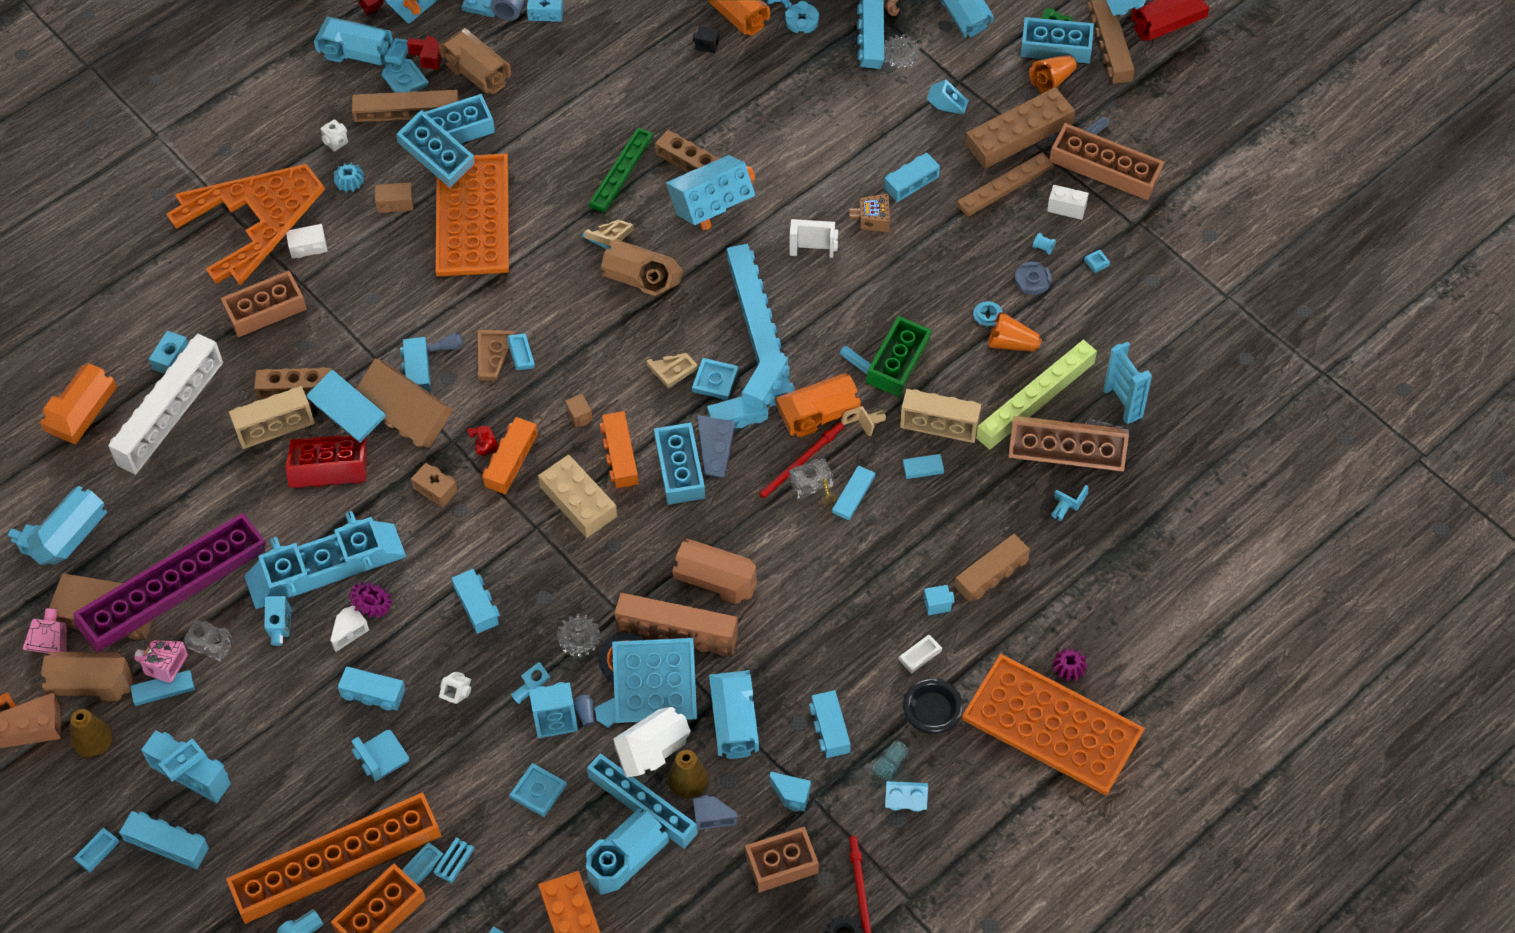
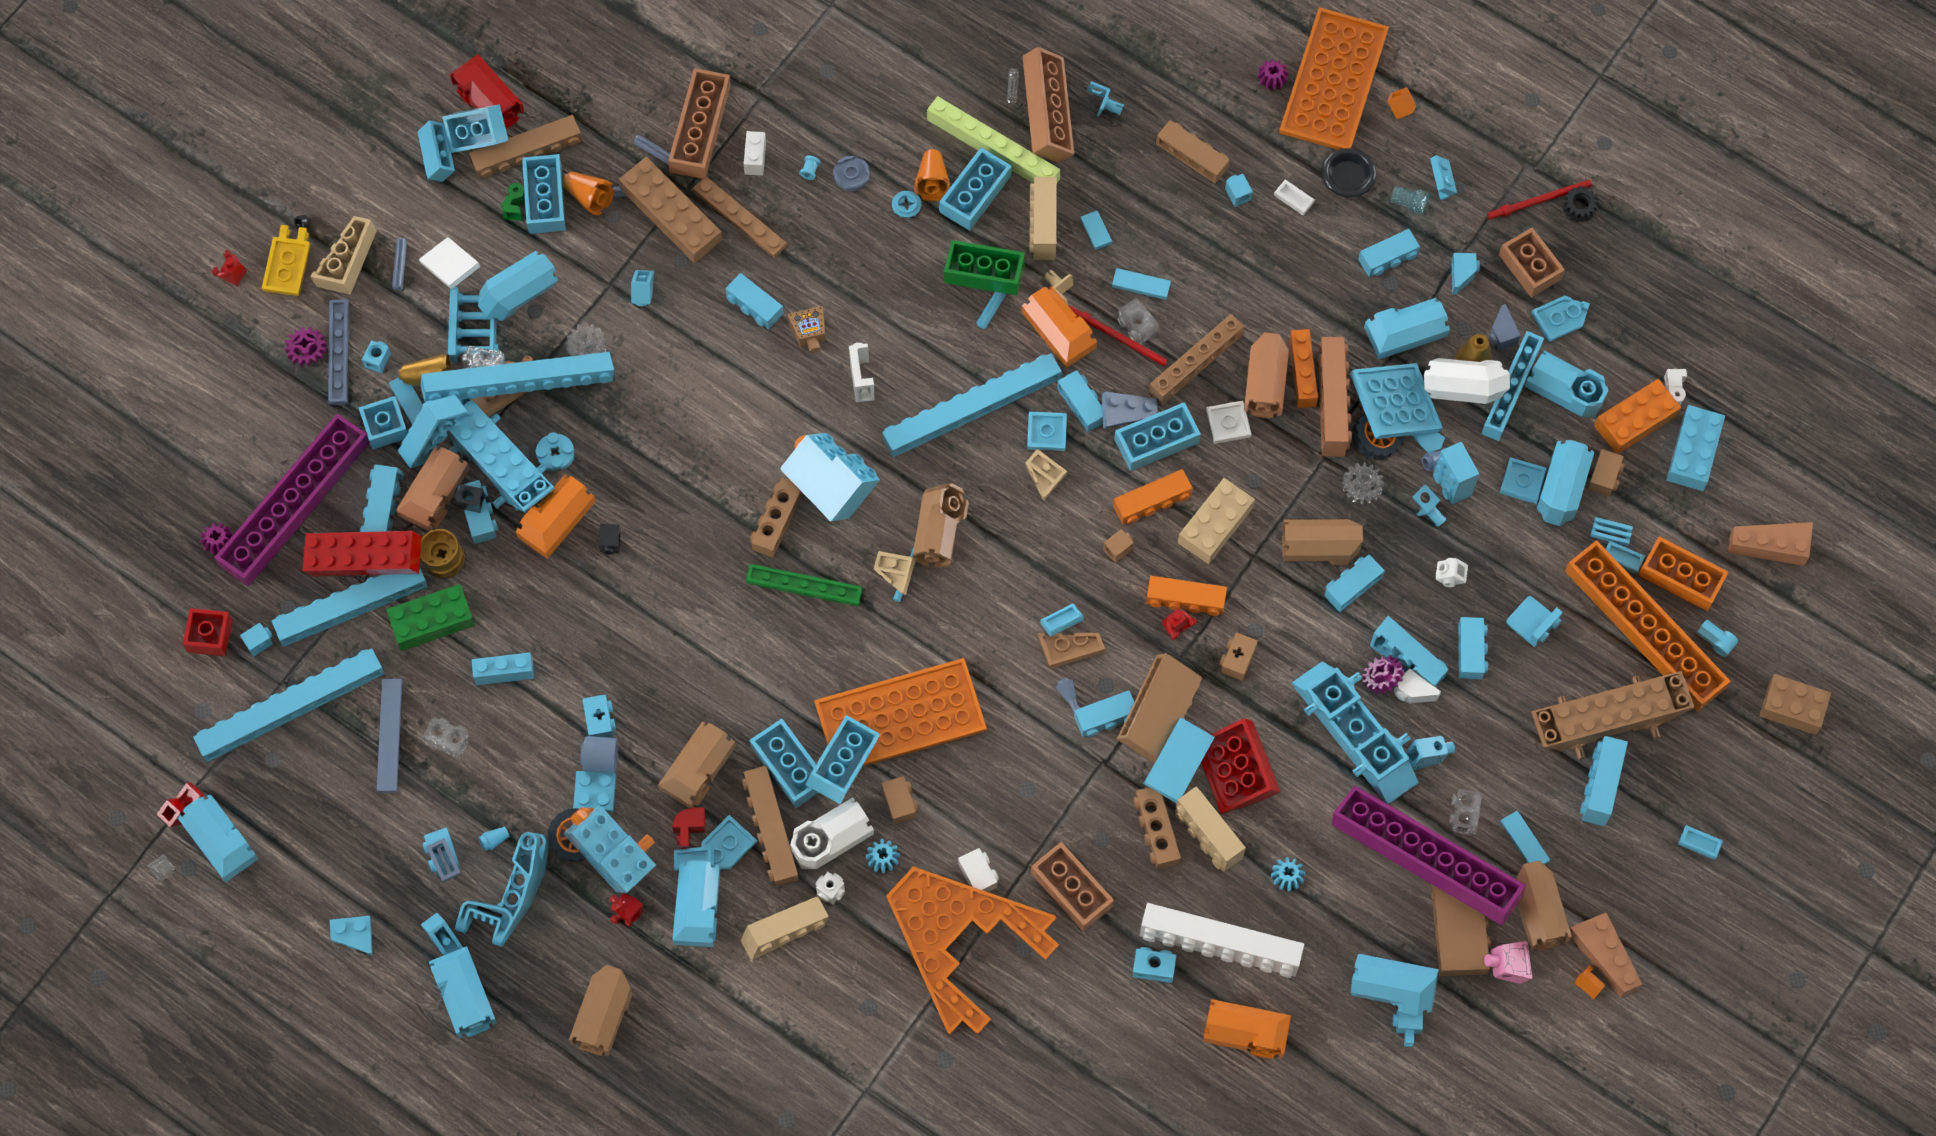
camera: 105 degrees left, 10 degrees up
(89, 734) = (1594, 887): pearl gold cone -> none
(162, 659) = (1501, 845): bright pink torso -> none
(164, 839) = (1675, 781): medium azure brick -> none
(182, 759) = (1613, 769): medium azure plate -> none
(209, 476) = (1287, 881): none -> medium azure gear
(252, 789) = (1613, 712): none -> medium nougat piece
(311, 94) = (783, 927): none -> tan wedge
(377, 138) = (830, 835): none -> white brick
(383, 627) = (1395, 641): none -> medium azure wedge
(516, 819) = (1565, 482): none -> medium azure brick
(518, 870) = (1606, 472): none -> medium nougat brick
(525, 576) = (1321, 540): none -> medium nougat brick
(678, 530) = (1228, 422): none -> white tile
(714, 879) = (1560, 317): none -> medium azure tile
(745, 610) = (1303, 368): none -> orange brick
(755, 518) = (1196, 359): none -> medium nougat brick
(765, 380) = (1050, 373): medium azure brick -> none
(827, 493) = (1153, 303): clear yellow hand -> none
(988, 367) = (975, 189): none -> medium azure brick
(1010, 783) = (1401, 103): none -> orange panel
(1097, 261) = (817, 120): medium azure tile -> none
(1132, 390) = (978, 58): medium azure fence -> none

